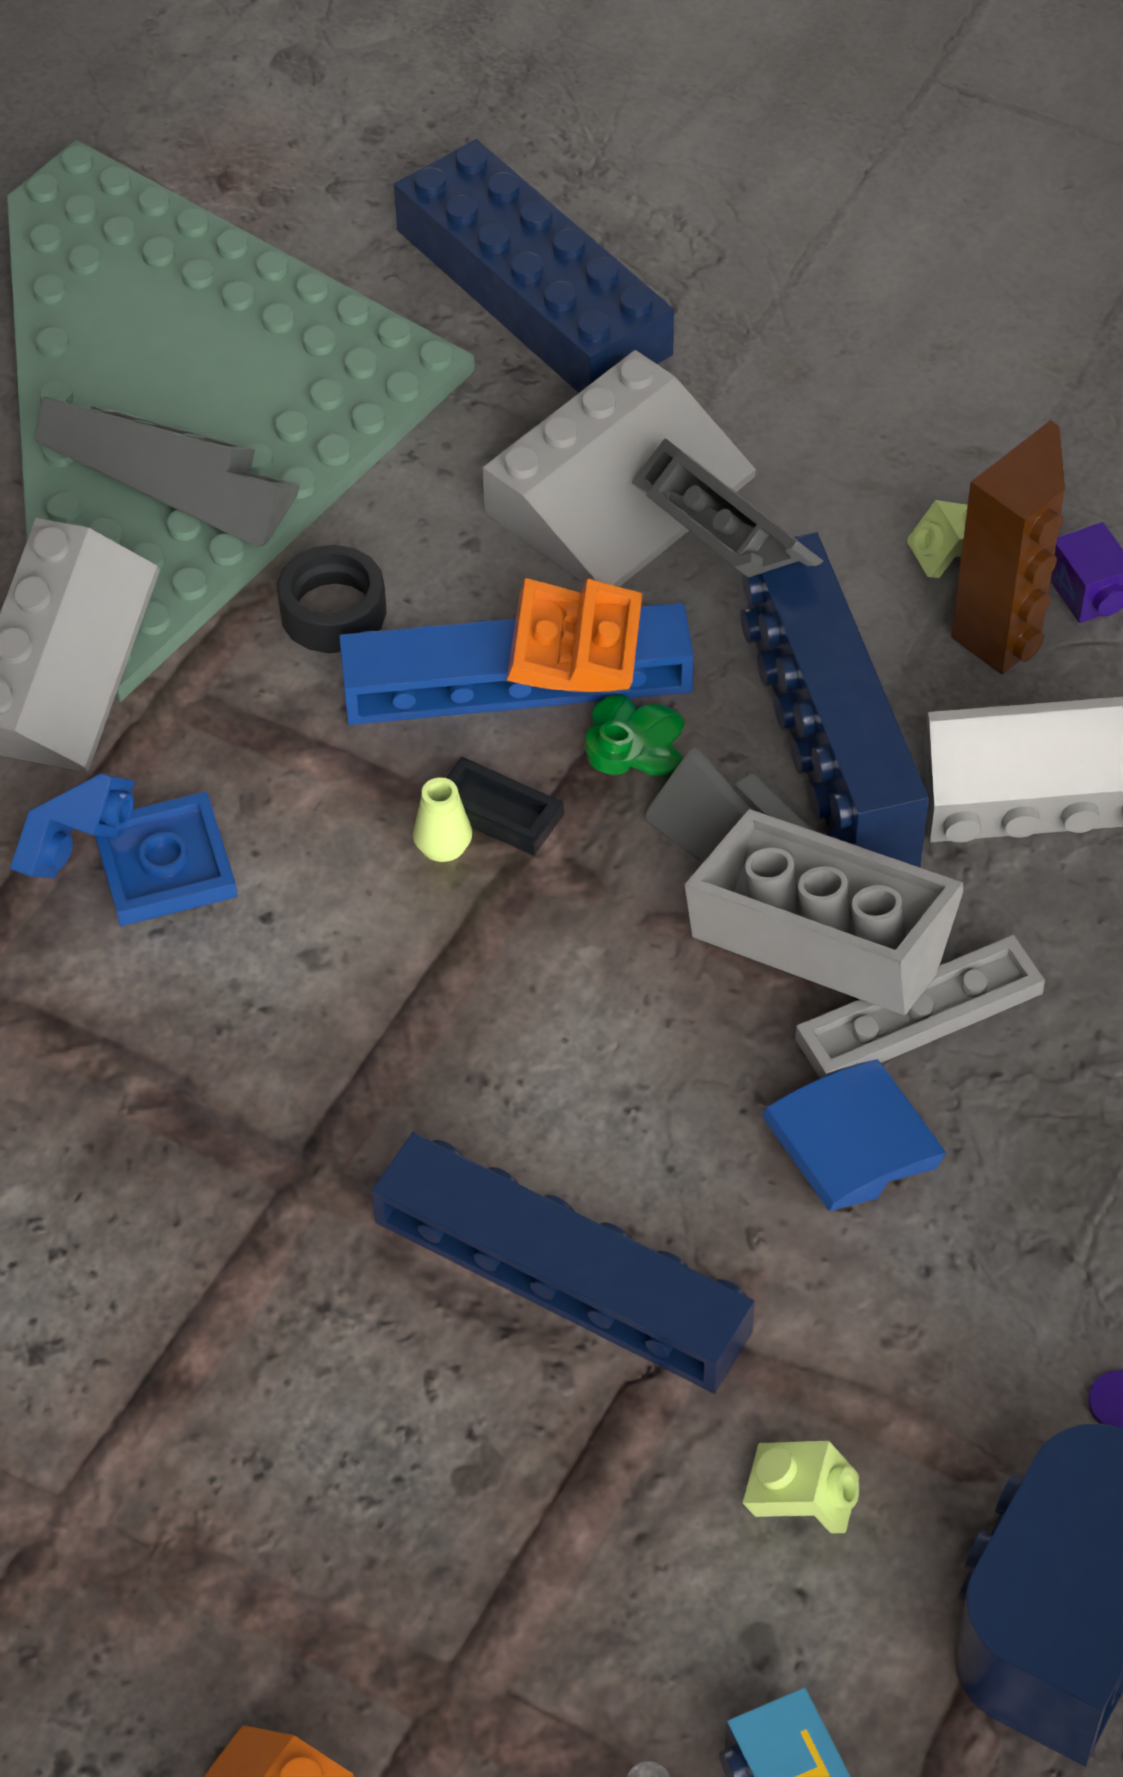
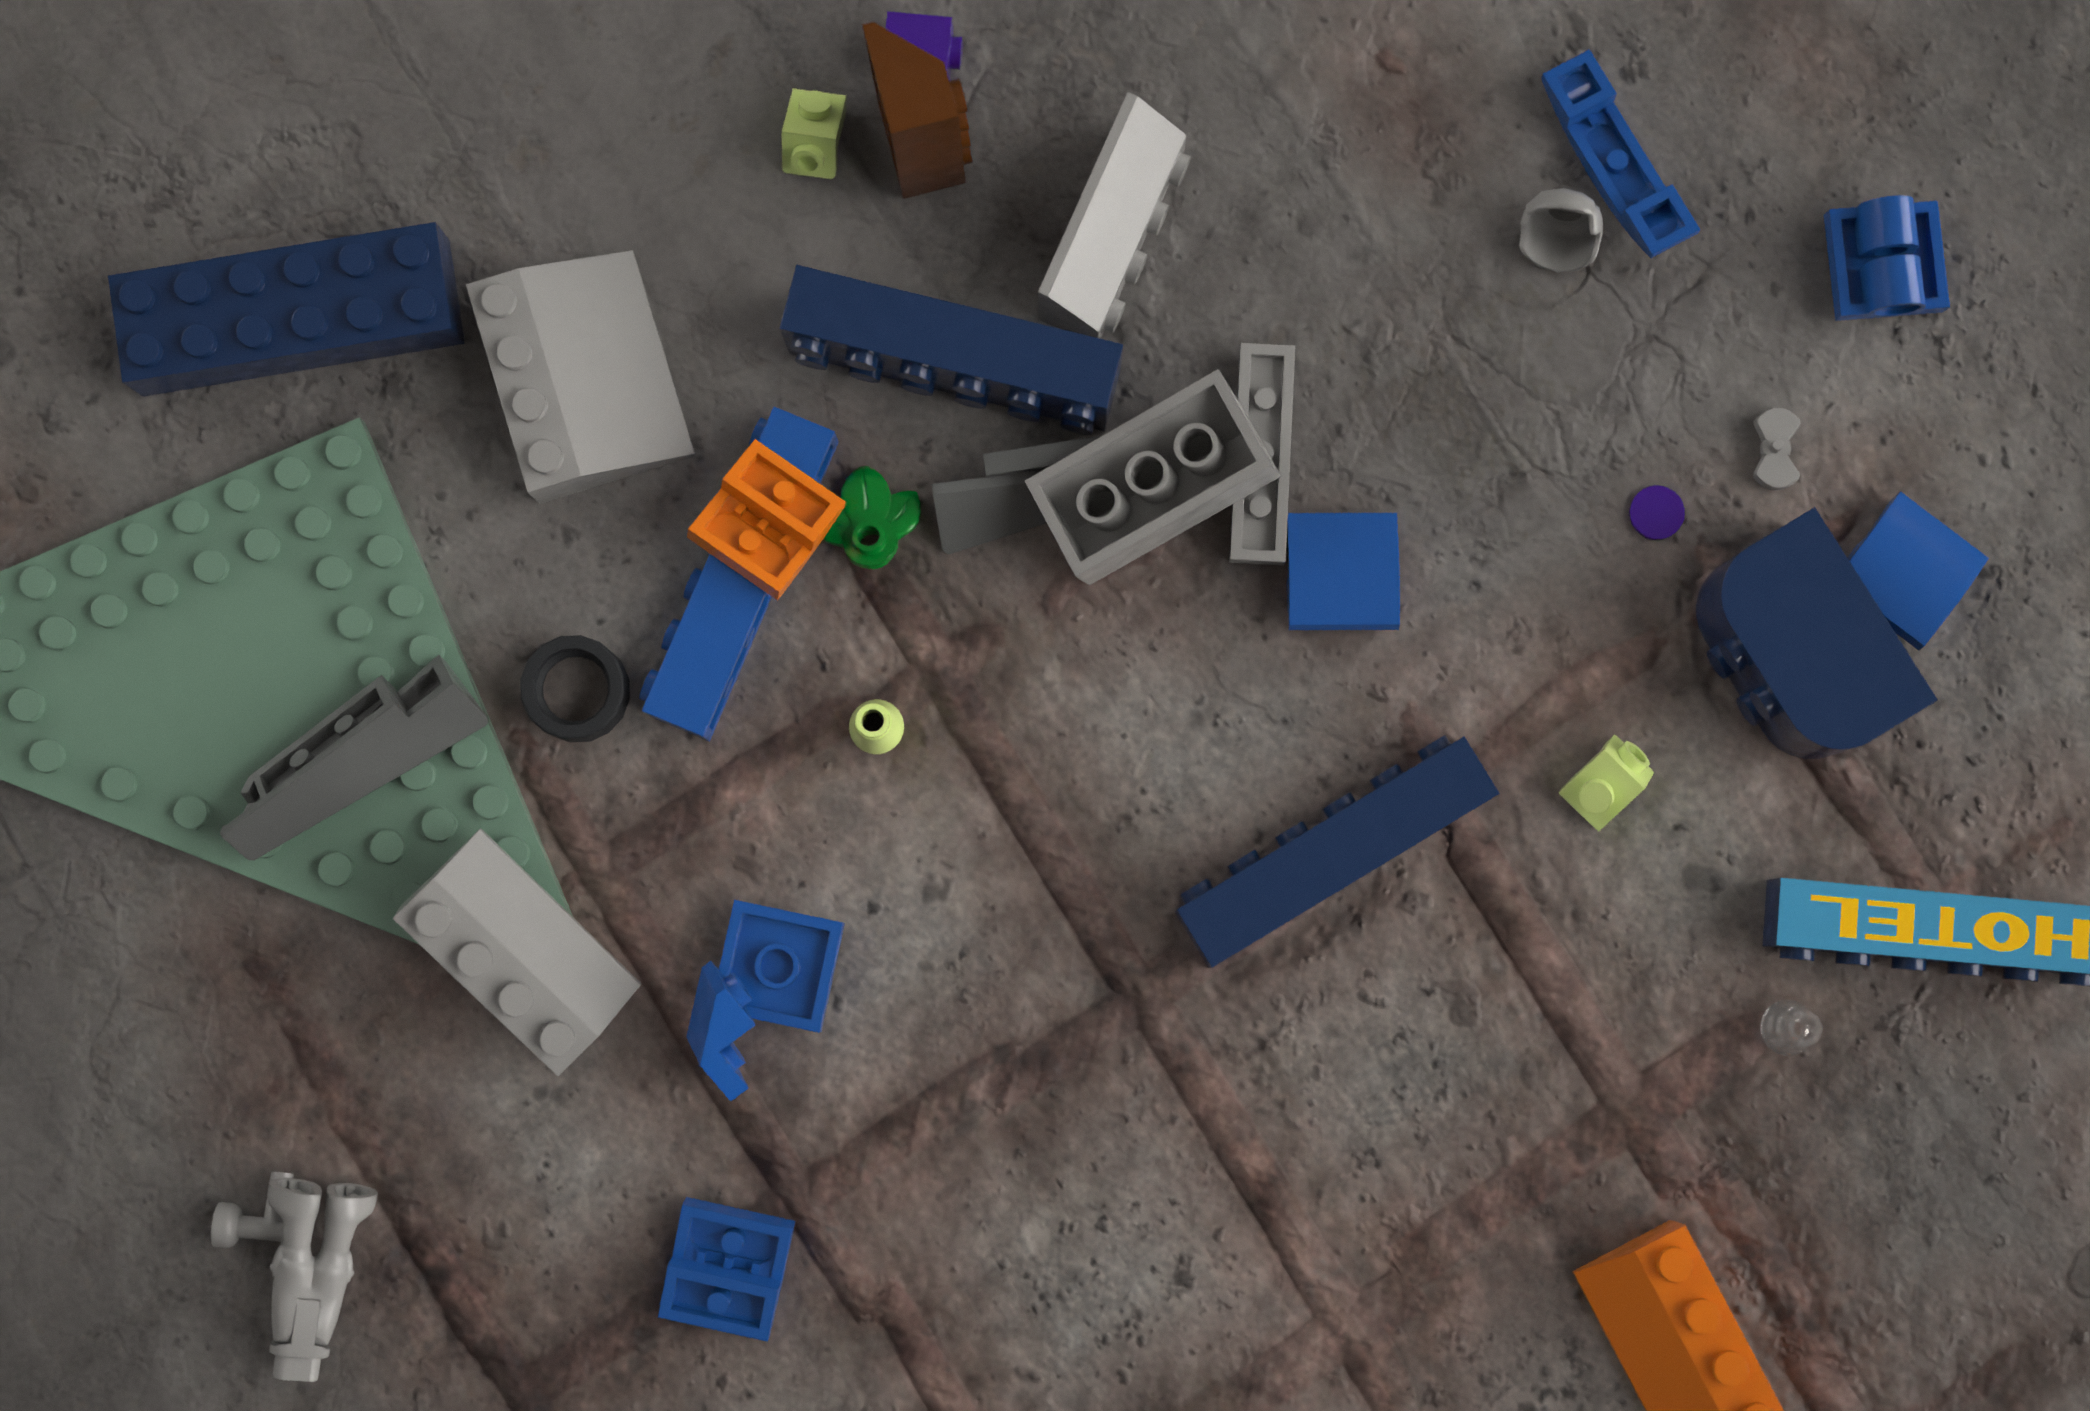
camera: 60 degrees left, 30 degrees up
(505, 806) = (871, 666): black tile -> none
(718, 513) = (717, 328): dark grey wedge -> none

